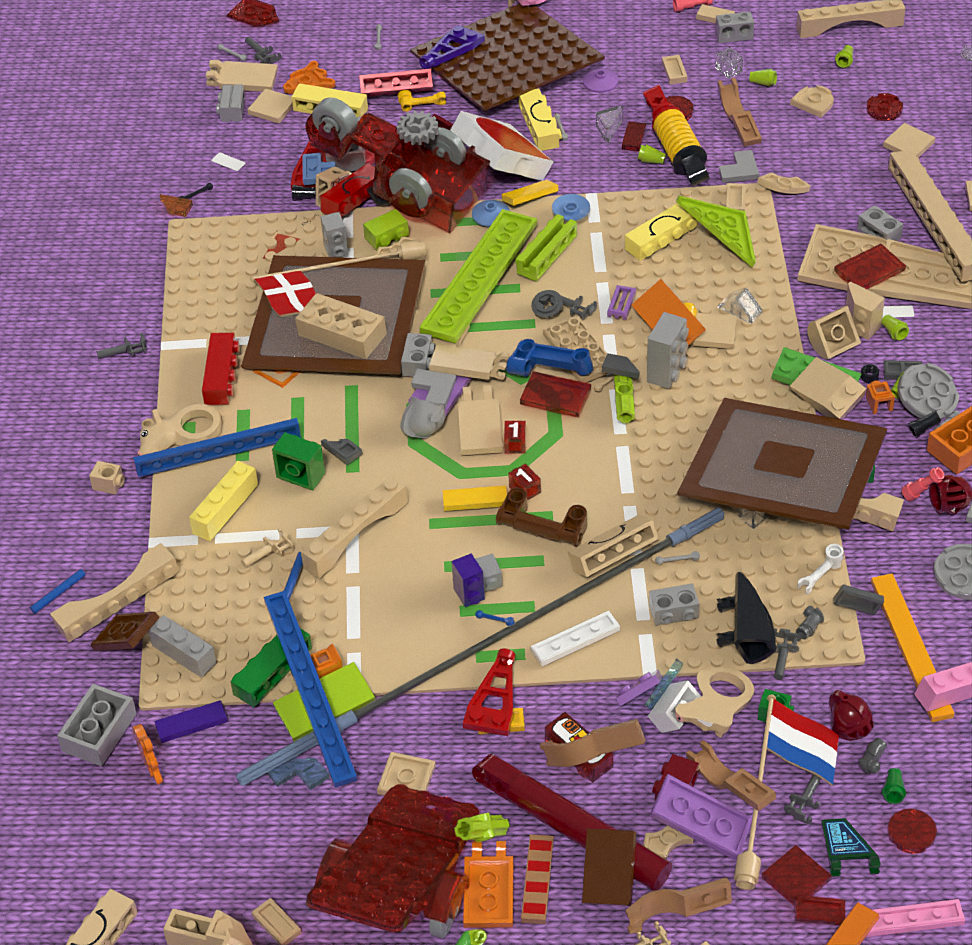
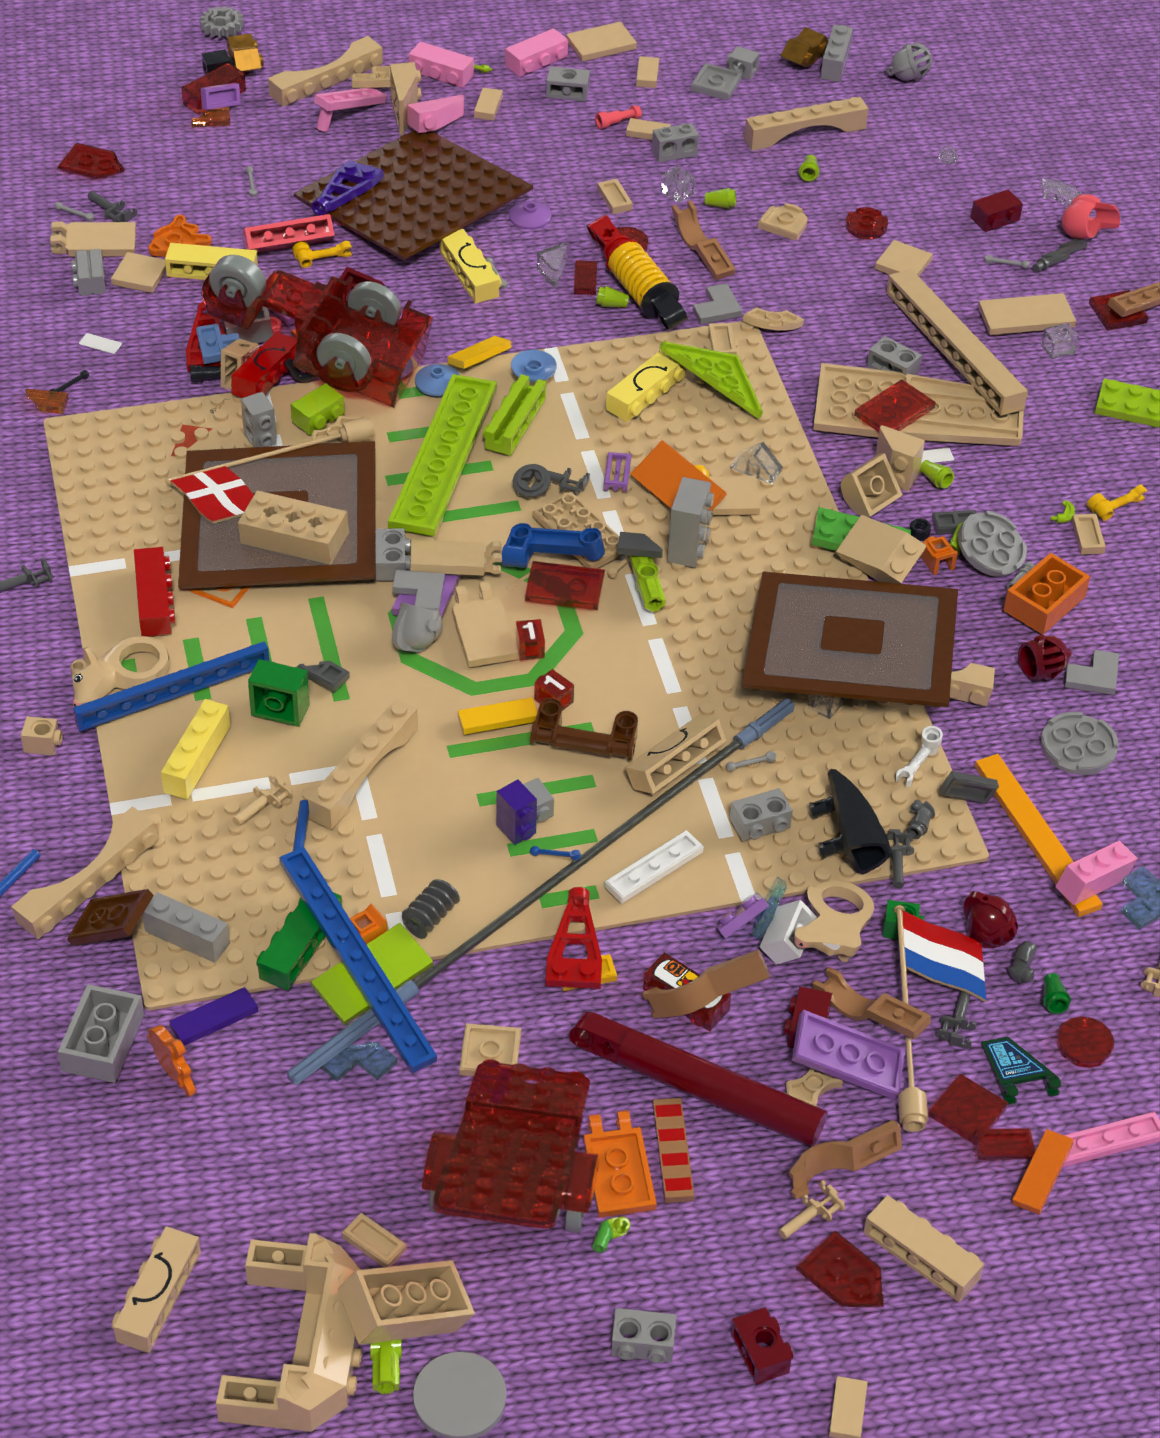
camera: 15 degrees left, 0 degrees up
(379, 651) = (430, 907): none -> dark grey piece
(417, 127) = (342, 283): light grey gear -> none
(482, 827) = (600, 1097): lime piece -> none
(502, 146) = (439, 298): white tile -> none
(609, 867) = (757, 1125): reddish brown tile -> none
(914, 489) = (999, 656): coral piece -> none
(919, 426) = (991, 583): black pin -> none

